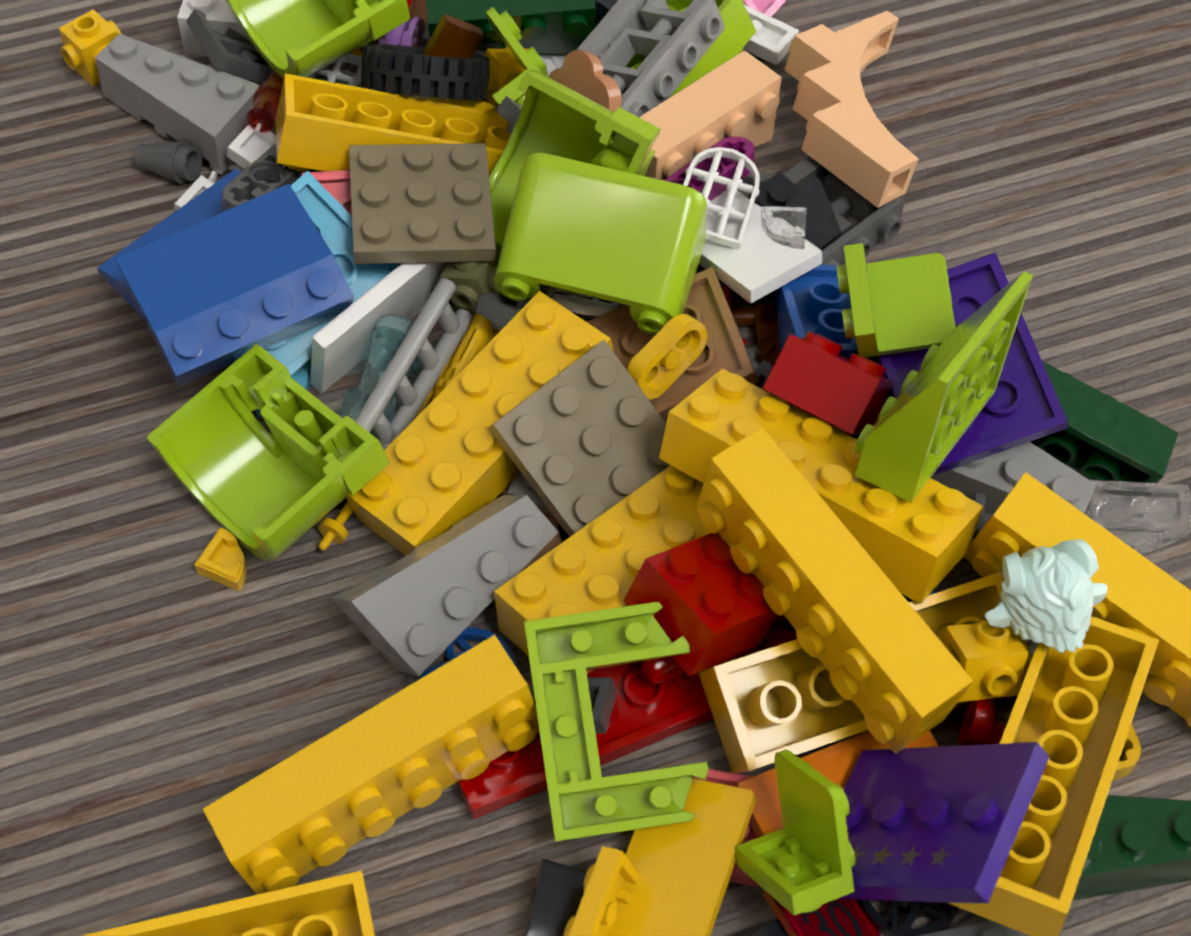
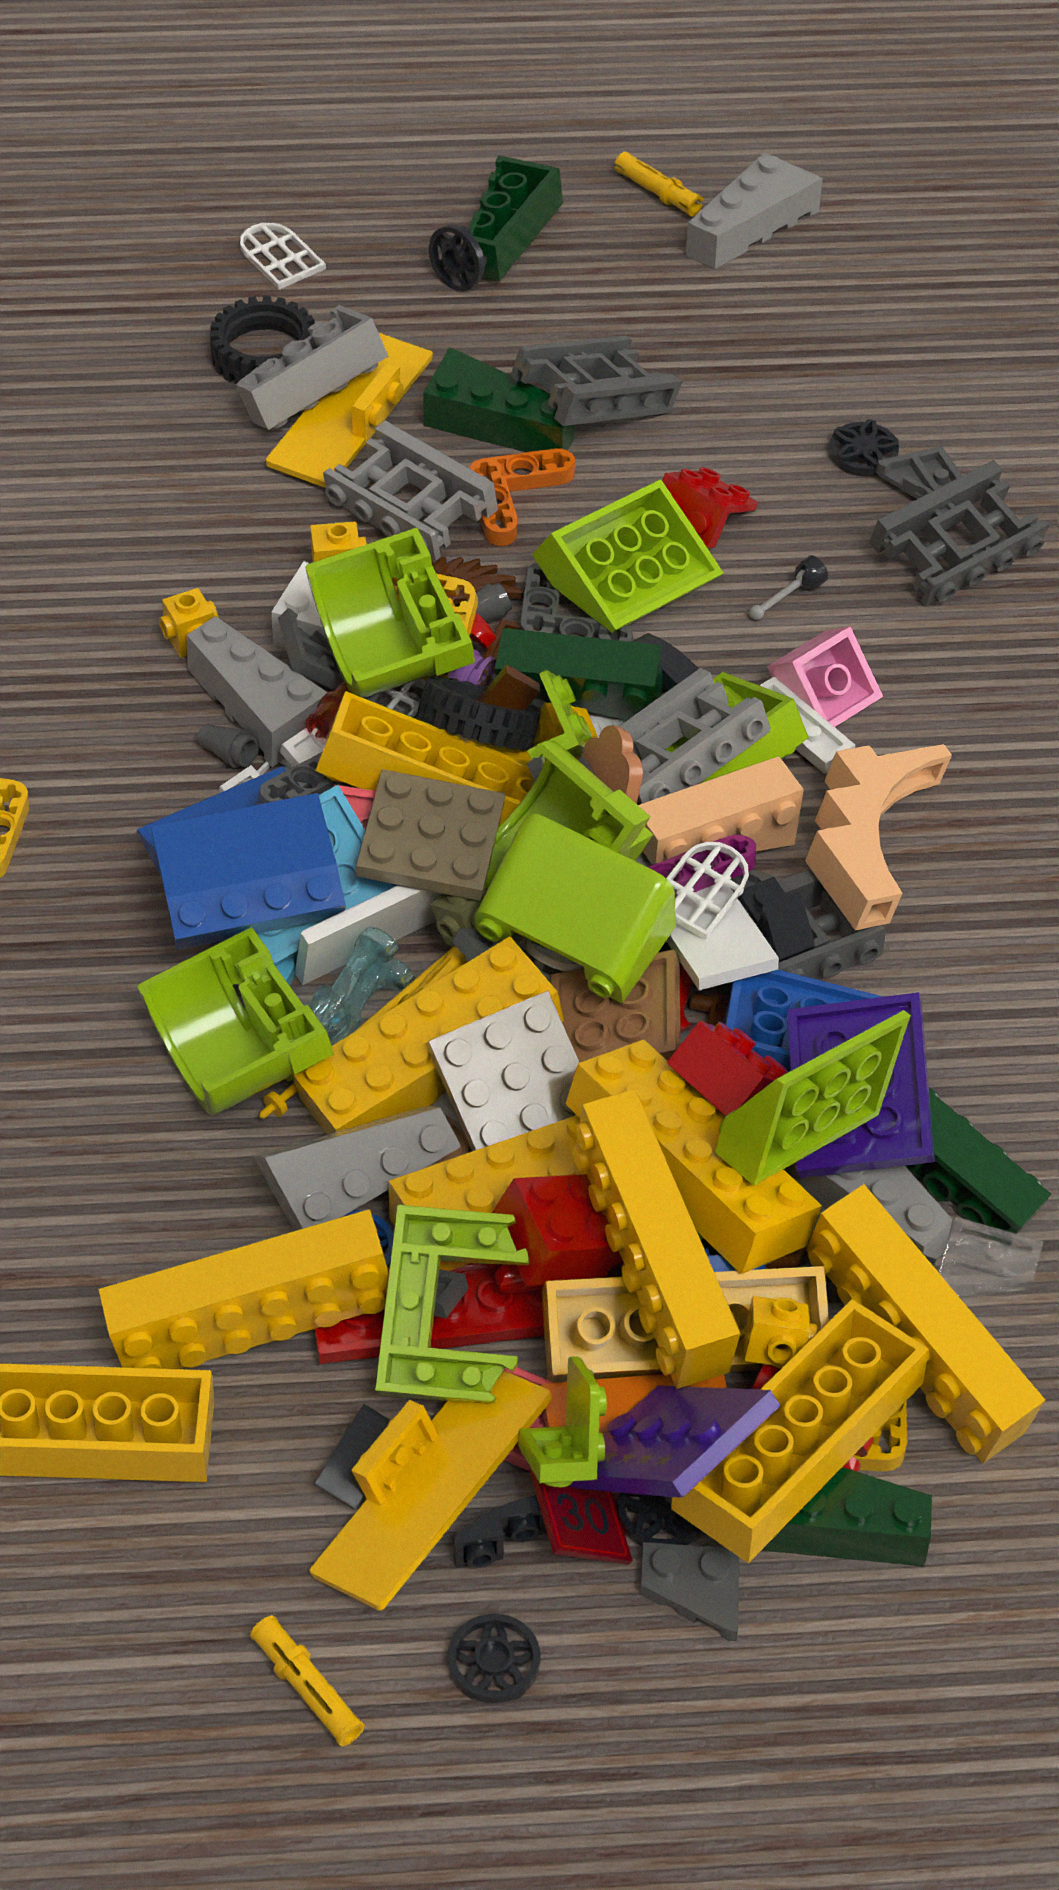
camera: 15 degrees right, 5 degrees down
(223, 561) = (175, 1107): yellow tile -> none
(432, 360) = (403, 978): light grey bar -> none
(668, 355) = (604, 1018): yellow plate -> none
(785, 225) = (755, 927): clear tile -> none
(895, 302) = (809, 1013): lime bracket -> none
(1049, 594) = (842, 1287): light aqua hair -> none

